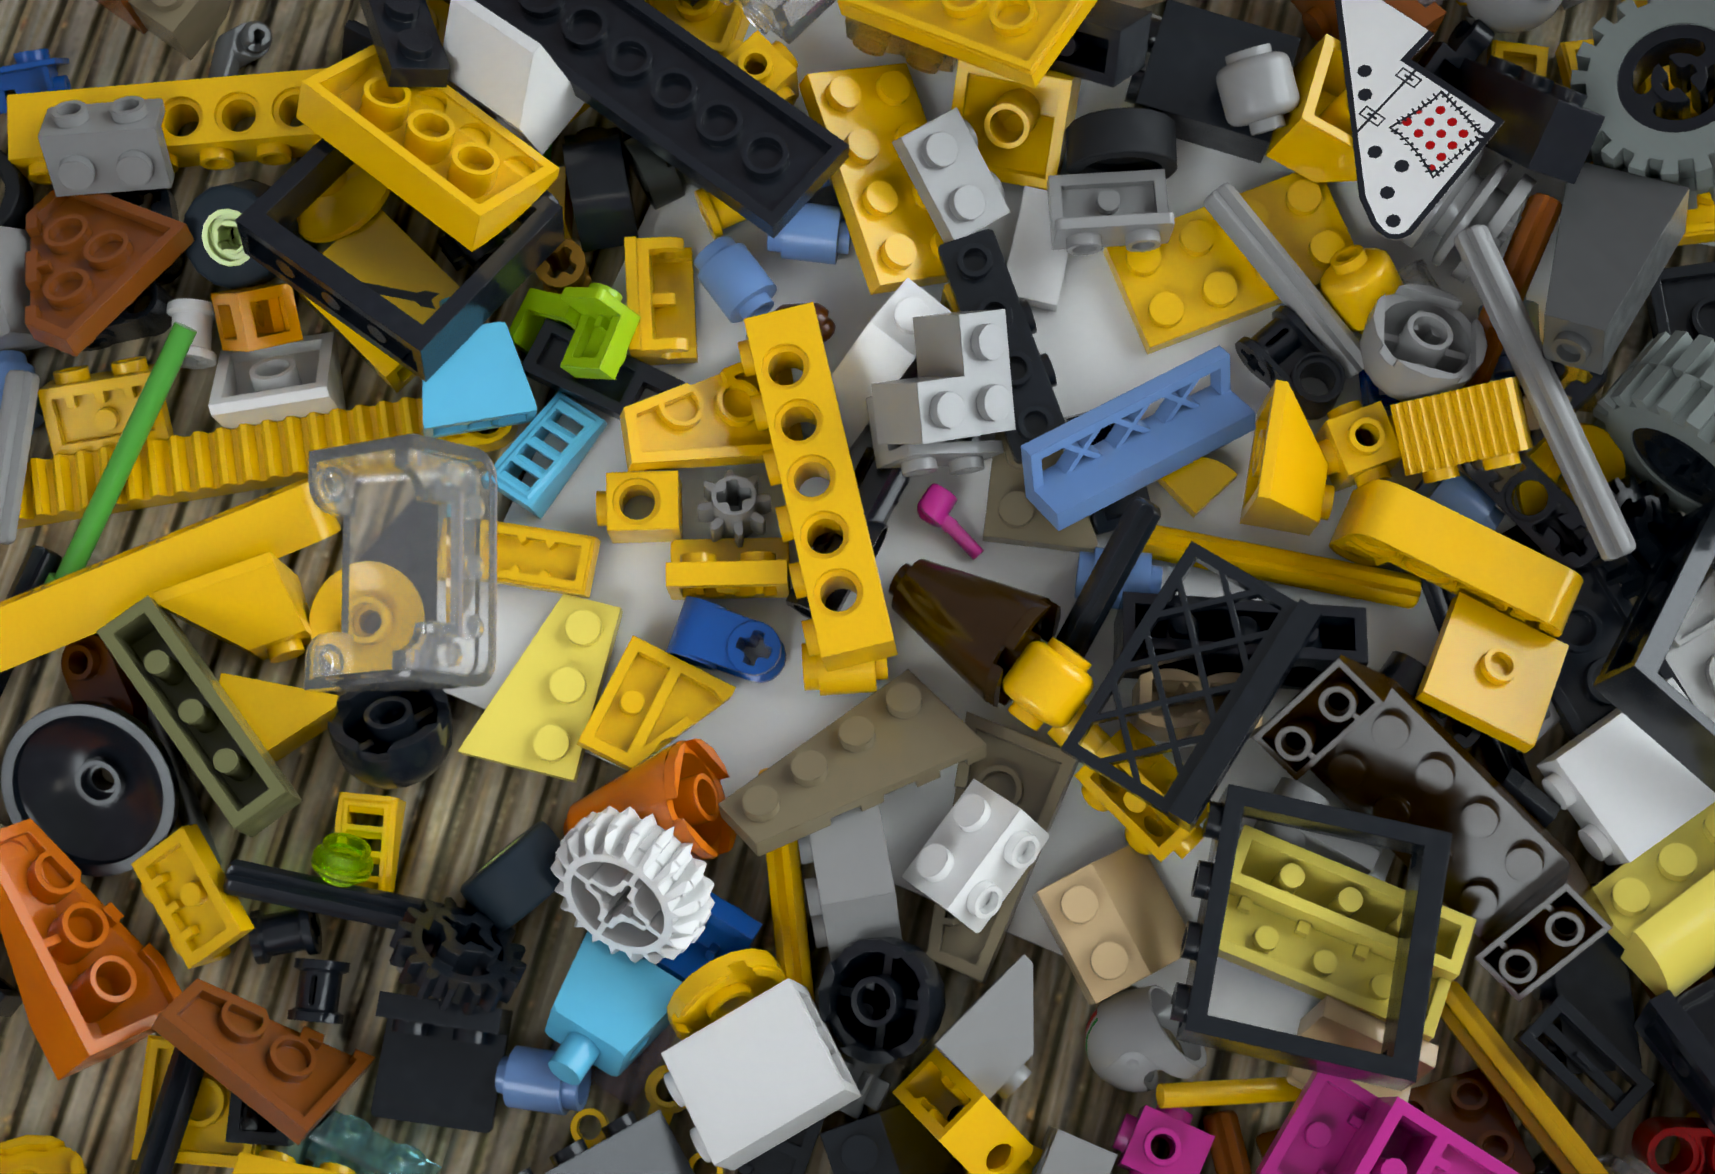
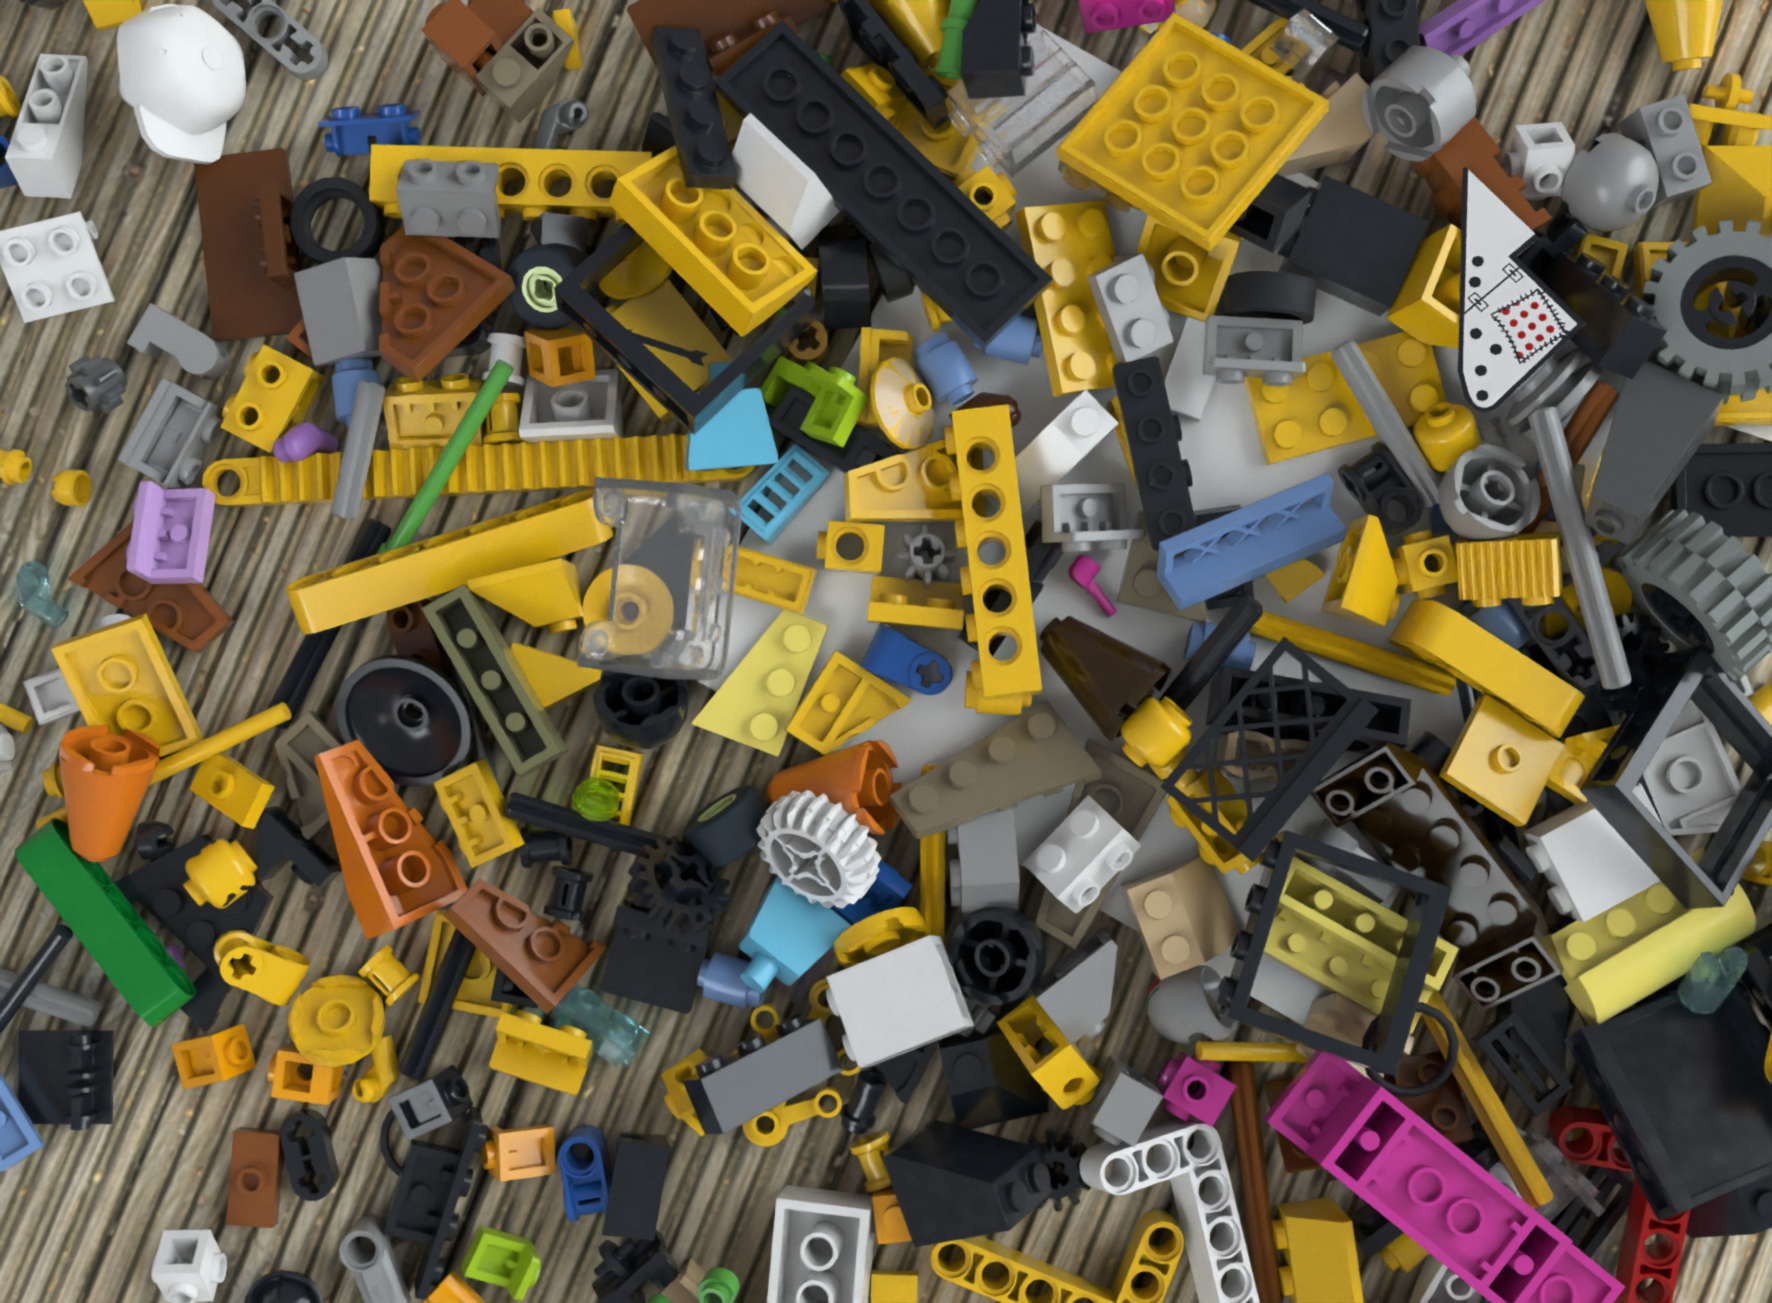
camera: 10 degrees right, 10 degrees up
(91, 1127) = (389, 975): none -> yellow bush
(190, 401) = (503, 420): none -> yellow bush
(246, 166) = (561, 229): none -> black slope
(684, 323) = (902, 403): none -> dish
(959, 385) = (1117, 486): light grey brick -> none
(1257, 88) = (1388, 266): light grey head -> none
(1489, 1054) = (1439, 1078): none -> black piece
(1582, 666) = (1577, 761): none -> yellow slope

